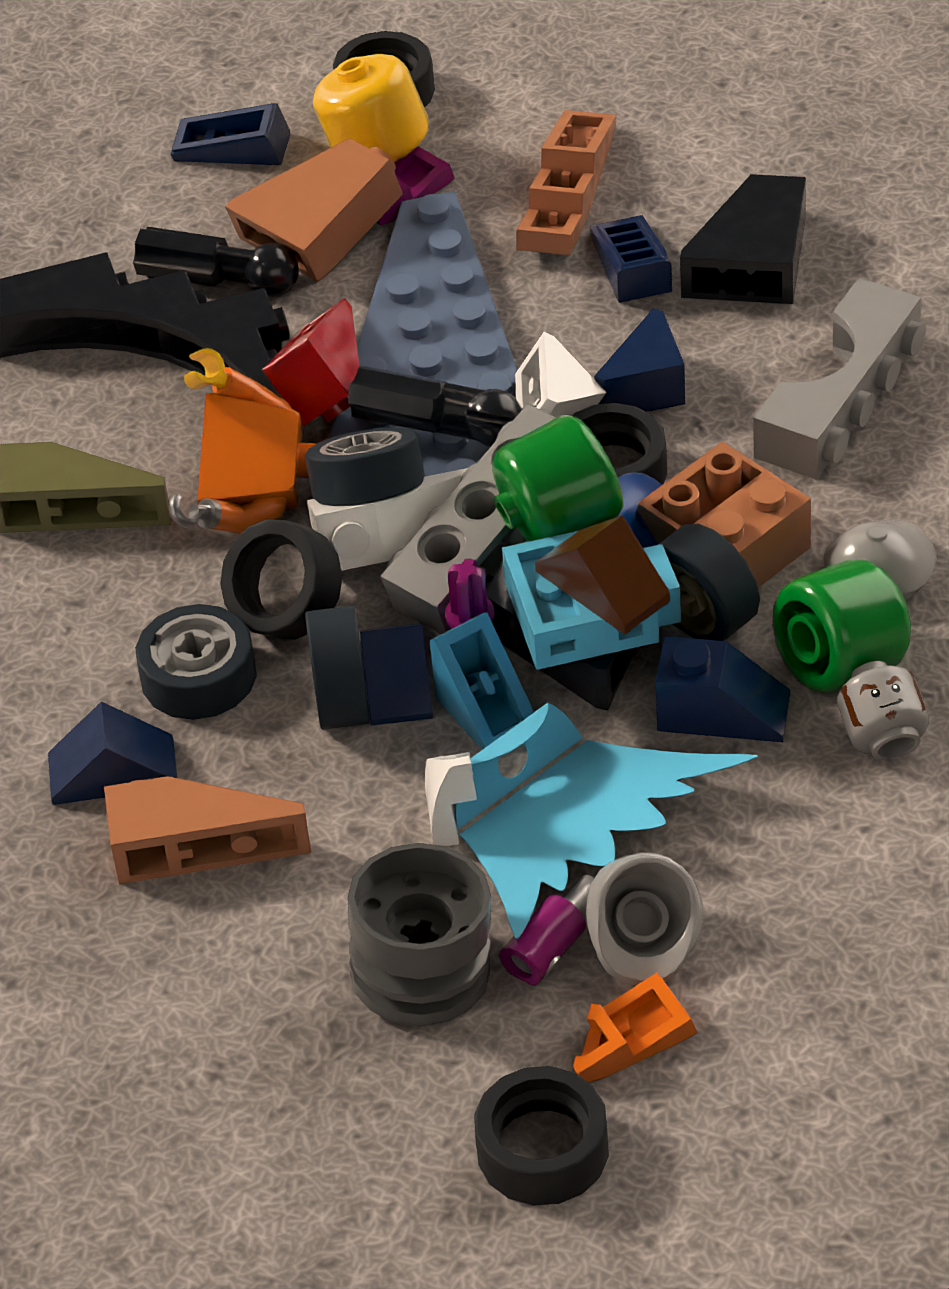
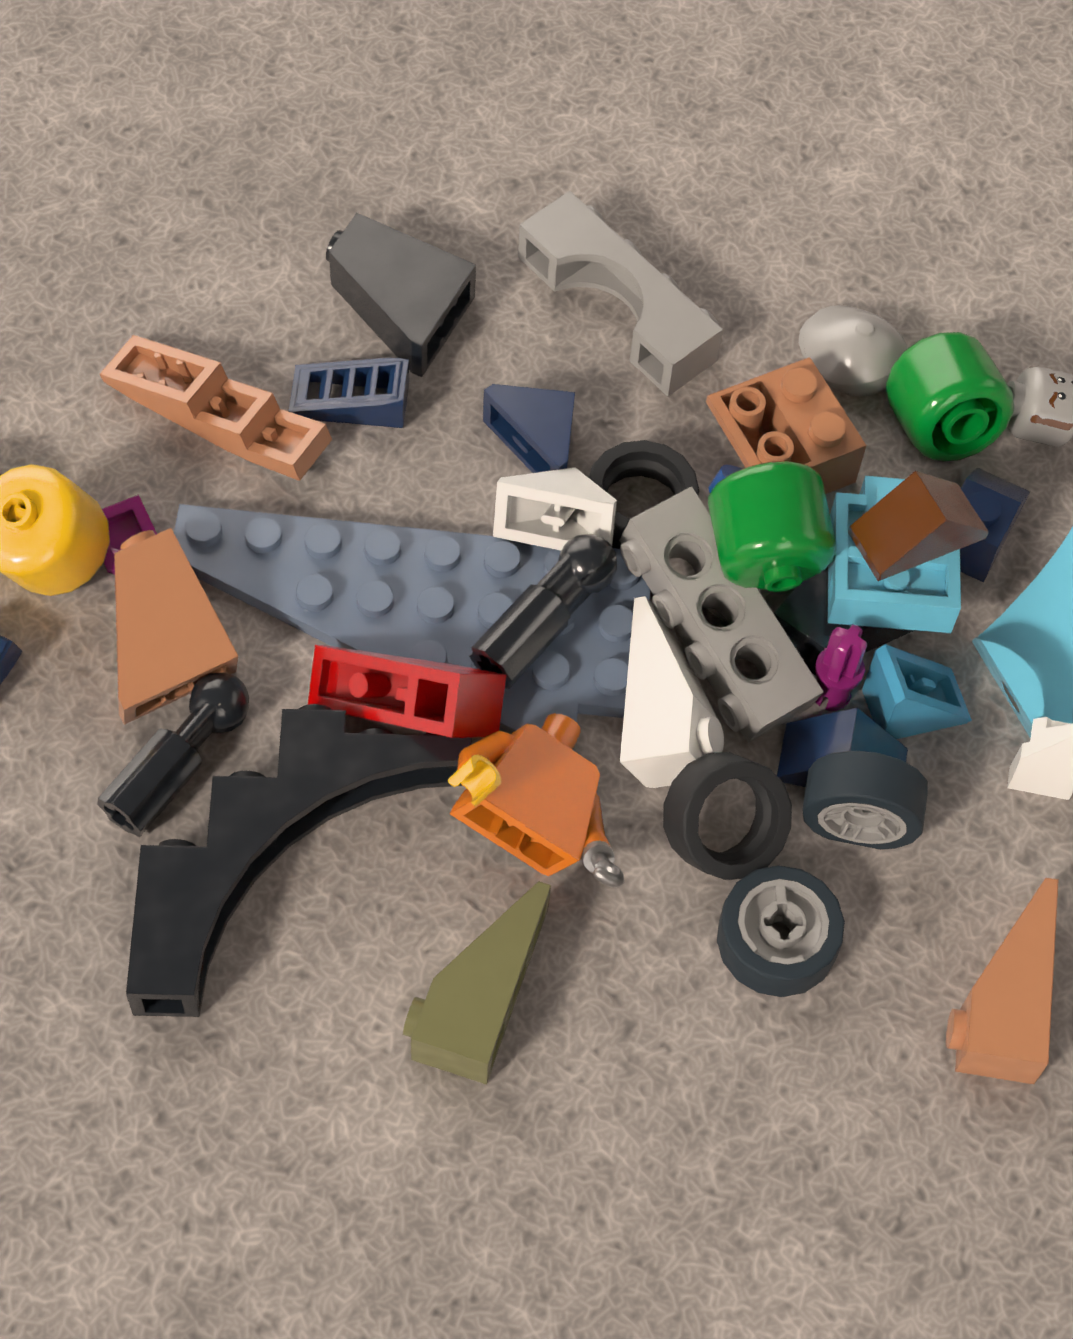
camera: 80 degrees left, 15 degrees up
(108, 751) = (886, 1051): dark blue slope -> none
(365, 466) = (624, 689): black wheel -> none
(714, 583) = (872, 452): black wheel -> none

